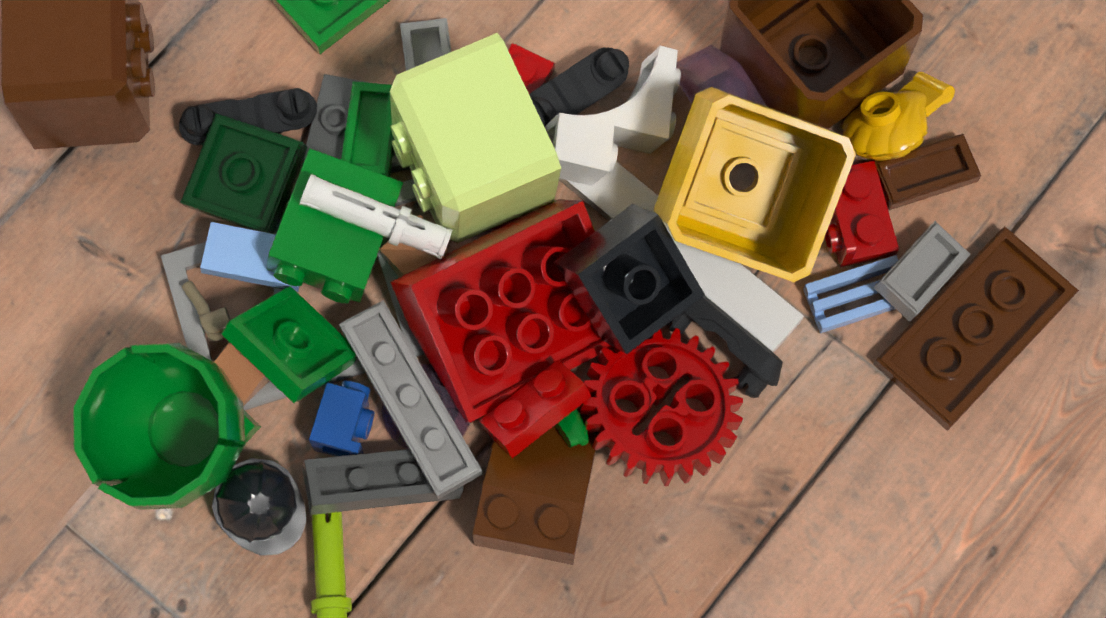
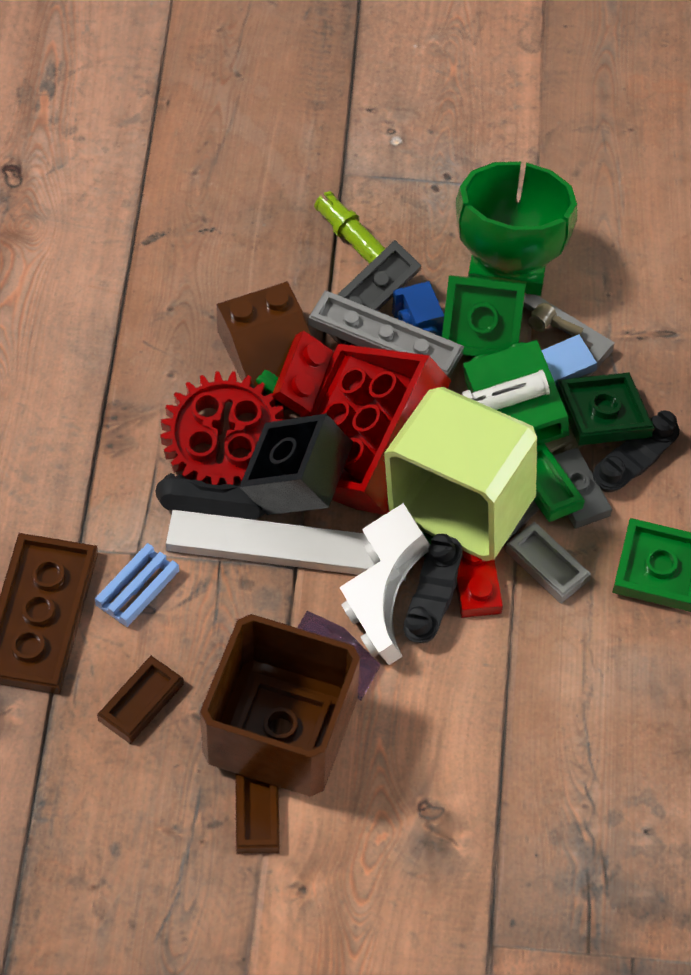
camera: 145 degrees right, 15 degrees down
(260, 507) = (436, 247): black piece -> none
(787, 208) = (254, 555): yellow plate -> none
(861, 220) = (176, 634): red bracket -> none
(896, 122) = (178, 709): yellow animal -> none
(922, 271) = (100, 617): light grey tile -> none

